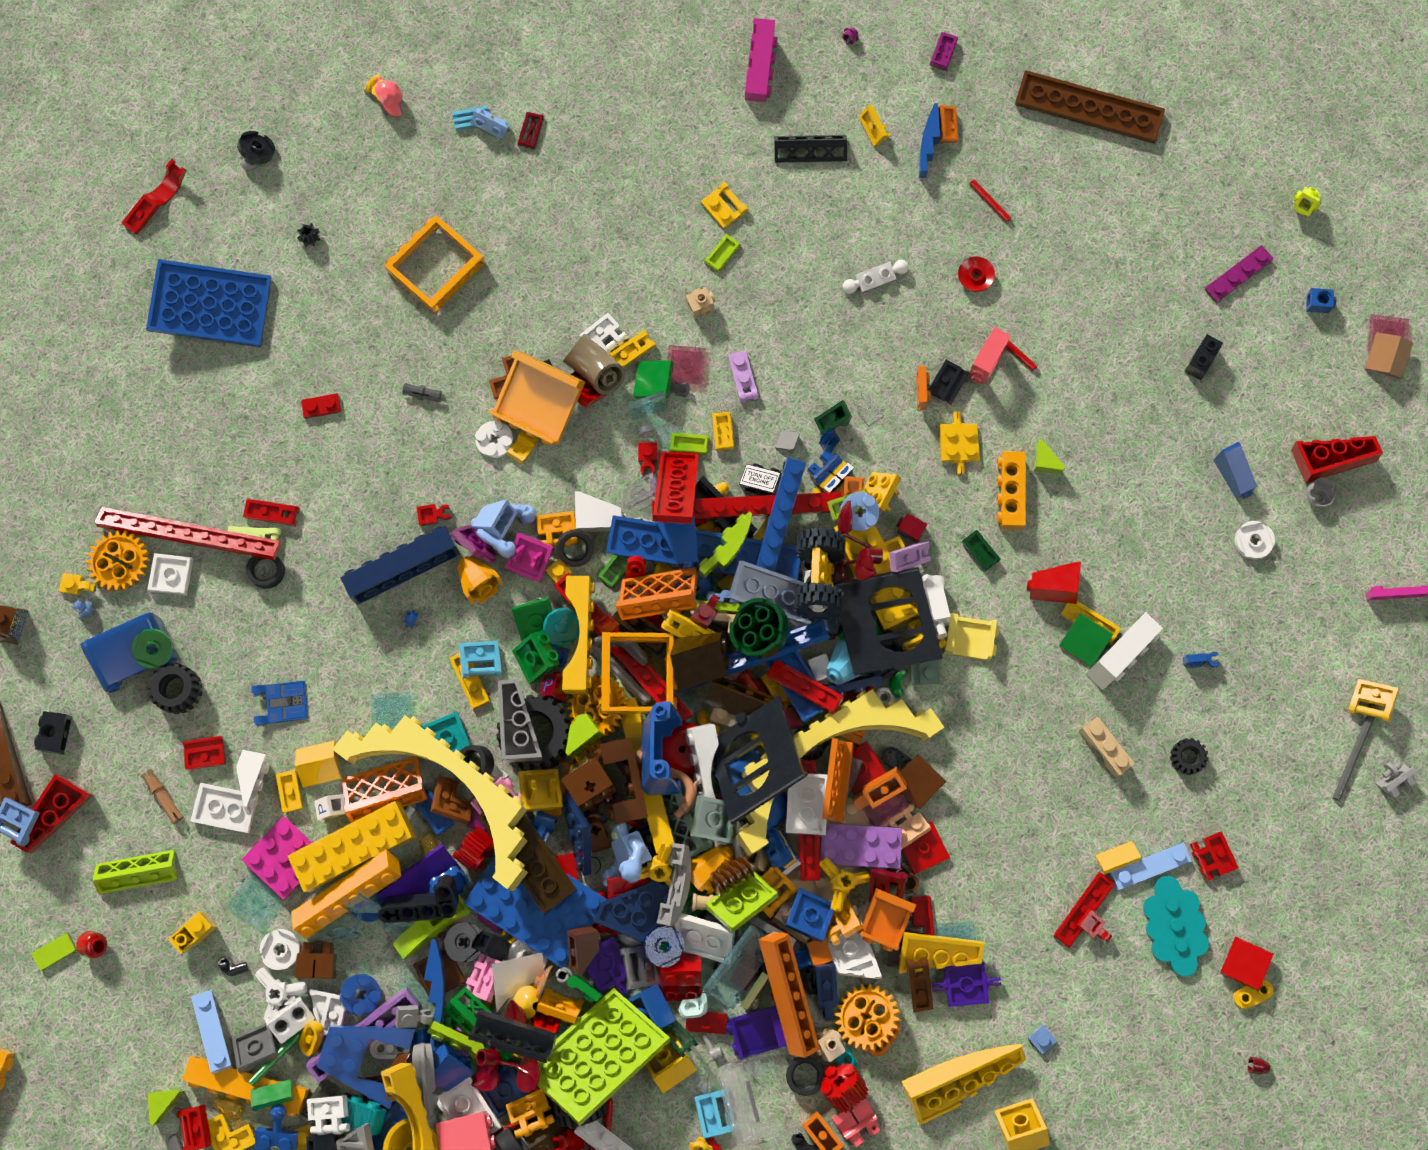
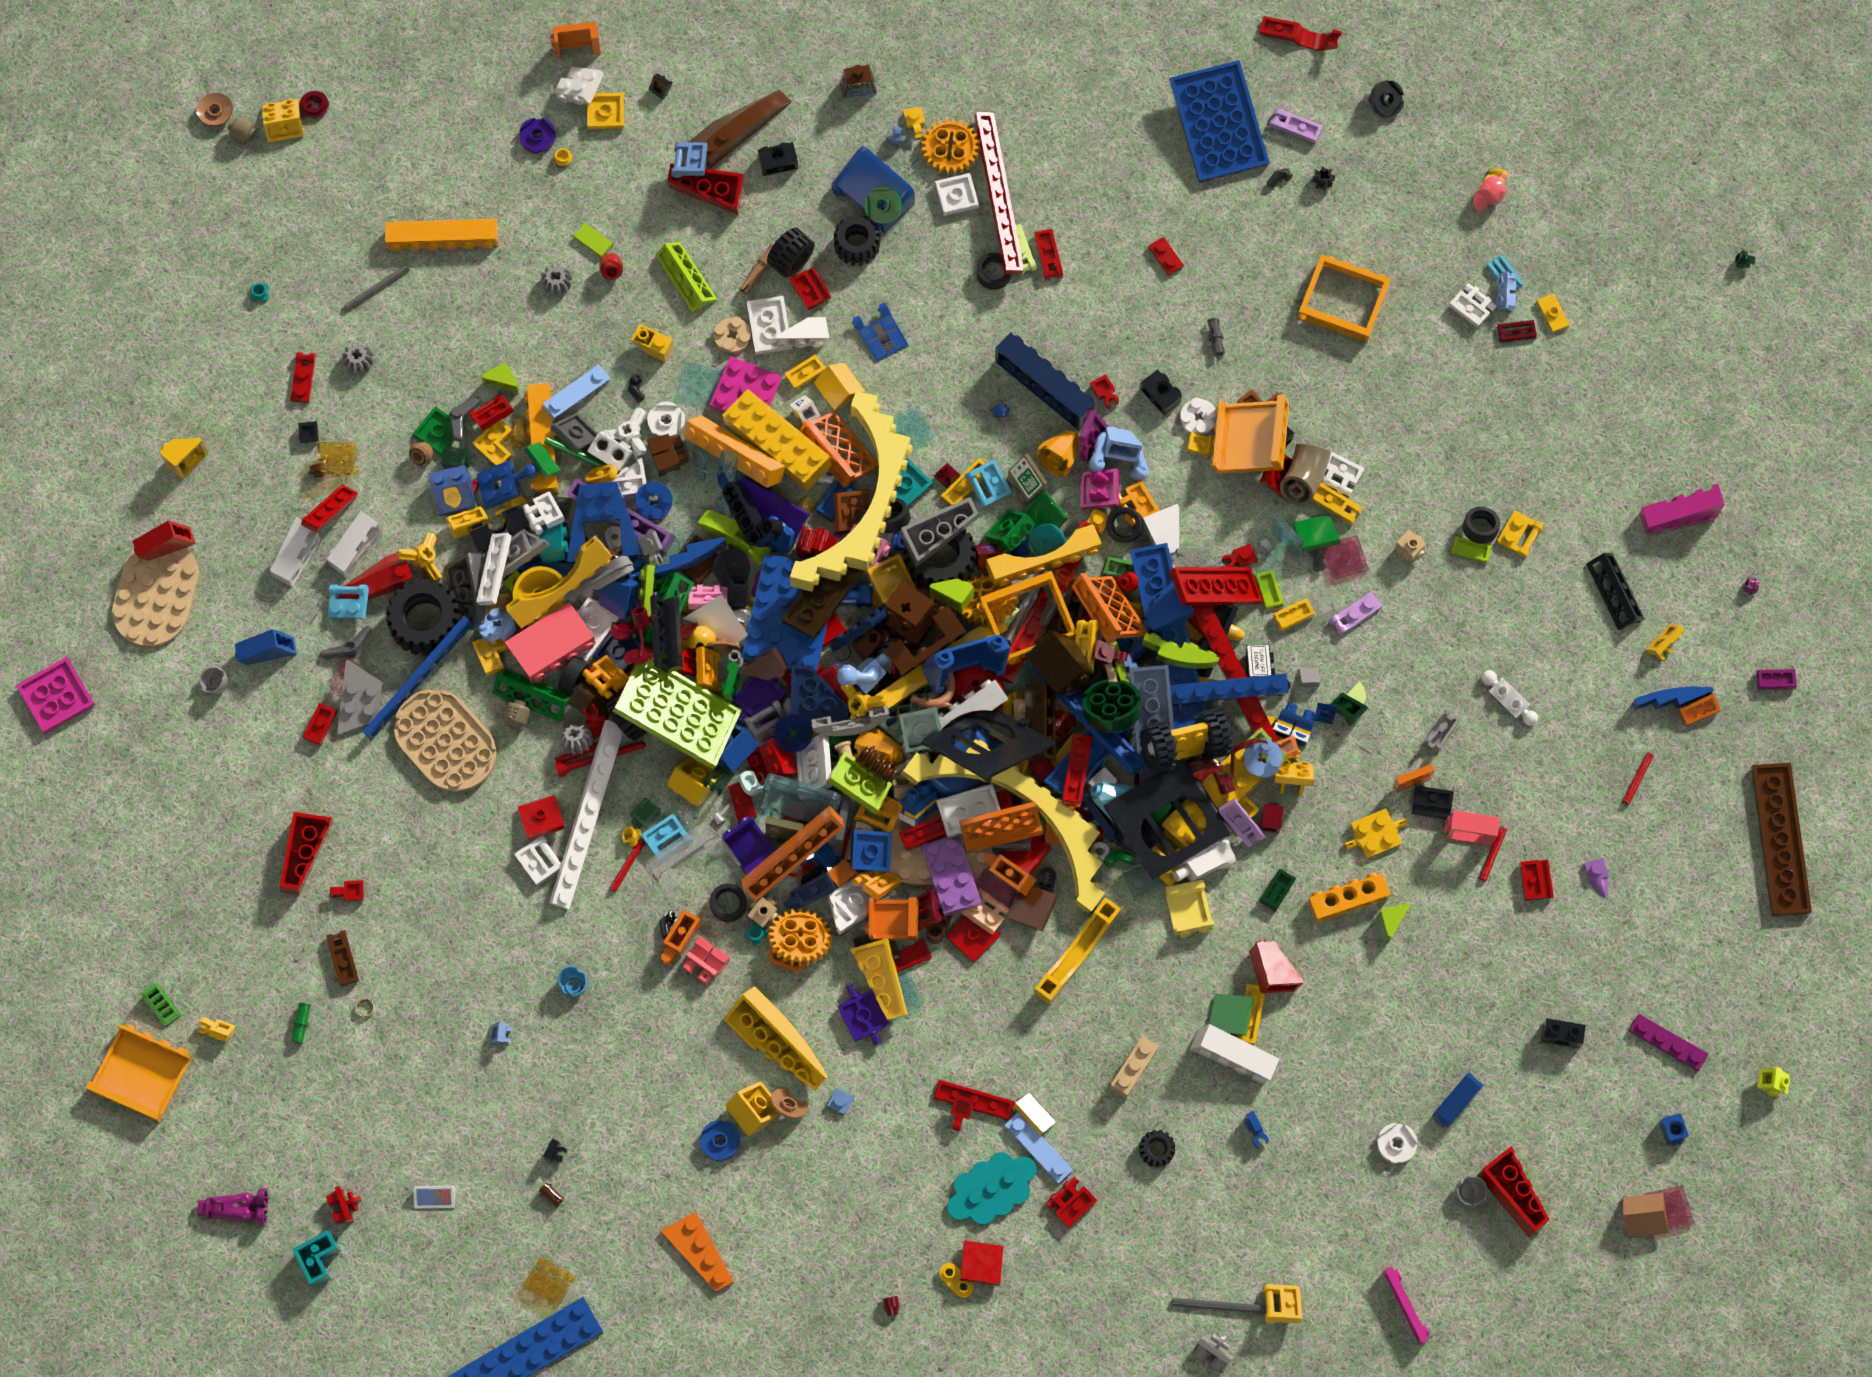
camera: 65 degrees right, 5 degrees down
(85, 1010) = (556, 285): none -> light grey gear
(159, 758) = (790, 252): none -> black tyre
(211, 857) = (733, 325): none -> tan plate
(244, 238) = (1296, 125): none -> lavender plate
(287, 275) = (1279, 175): none -> pearl dark grey arm
(454, 695) = (947, 475): none -> dark red tile
(466, 466) = (1156, 382): none -> black brick
(491, 161) = (1469, 308): none -> white plate
(493, 621) = (1026, 480): none -> slope
(502, 768) = (897, 541): none -> blue plate
(527, 93) = (1552, 313): none -> yellow plate
(684, 1126) = (644, 814): none -> clear green brick
(710, 244) = (1479, 536): none -> black tyre
(820, 405) = (1358, 693): none -> yellowish green tile
(843, 1087) = (730, 935): red brick -> none
(848, 879) = (902, 868): yellow bush -> none
(885, 347) = (1441, 732): none -> light grey hinge
(920, 985) = (846, 971): reddish brown plate -> none
(968, 744) = (1078, 951): none -> yellow arch
(979, 266) = (1556, 781): red dish -> none
(1034, 1084) = (787, 1105): none -> medium nougat dish
(1053, 322) = (1536, 880): none -> red plate
(1066, 270) = (1598, 876): none -> medium lavender plate

